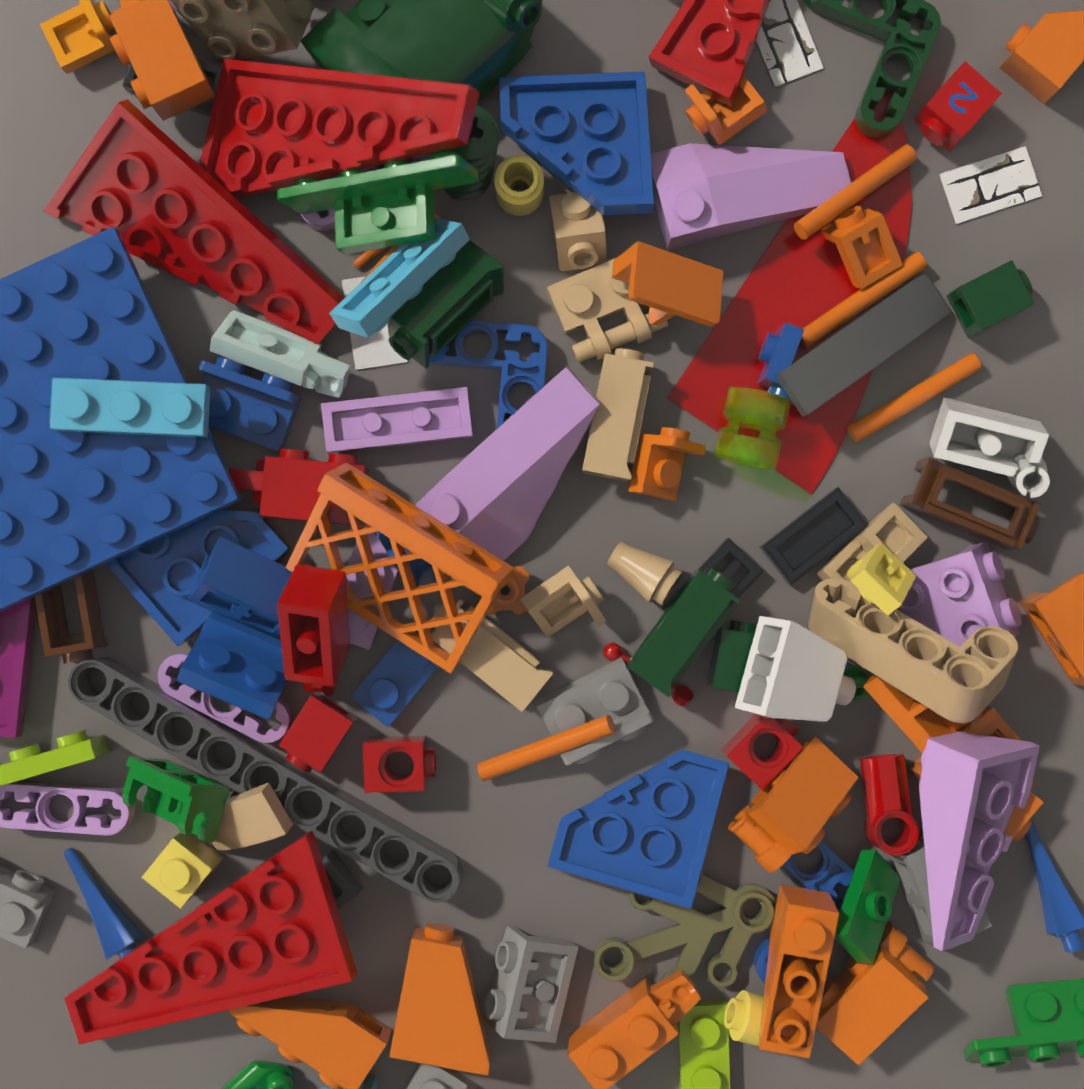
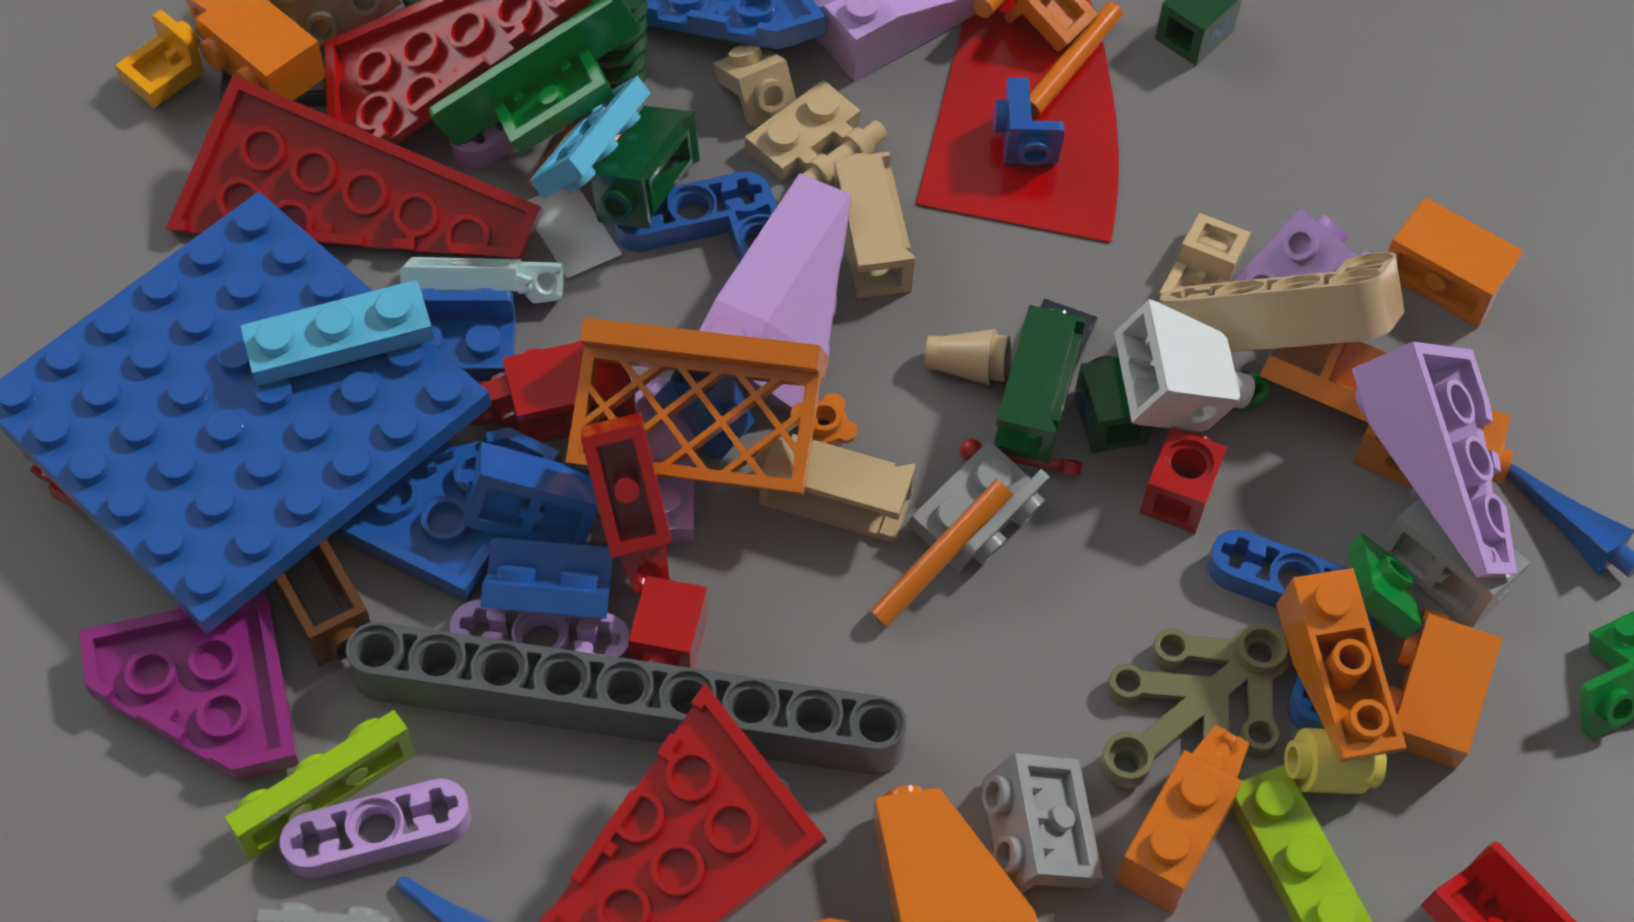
camera: 25 degrees left, 30 degrees down
(177, 795) = (522, 739): green hinge -> none
(182, 868) = (557, 827): light yellow brick -> none
(251, 819) = (611, 743): tan slope -> none
(378, 774) = (769, 654): red brick -> none
(394, 682) = (740, 547): blue plate -> none
(397, 420) = (639, 294): lavender plate -> none
(519, 171) = (679, 52): light yellow brick -> none
(562, 601) = (895, 405): tan bracket -> none
(647, 830) = (1096, 606): blue plate -> none
(661, 462) = (937, 244): orange bracket -> none
(670, 284) = (870, 80): orange panel -> none
(754, 411) = (1019, 185): clear neon green wheel -> none
(795, 806) = (1248, 511): orange hinge -> none
(813, 536) = (1132, 273): black tile -> none
(863, 344) = (1092, 84): dark grey slope -> none
(882, 578) = (1219, 262): light yellow bracket -> none
(887, 797) = (1349, 487): red piece -> none
(914, 397) = (1169, 125): orange bar -> none
(924, 501) = (1271, 188): reddish brown window -> none
(993, 443) = (1271, 122): white hinge -> none

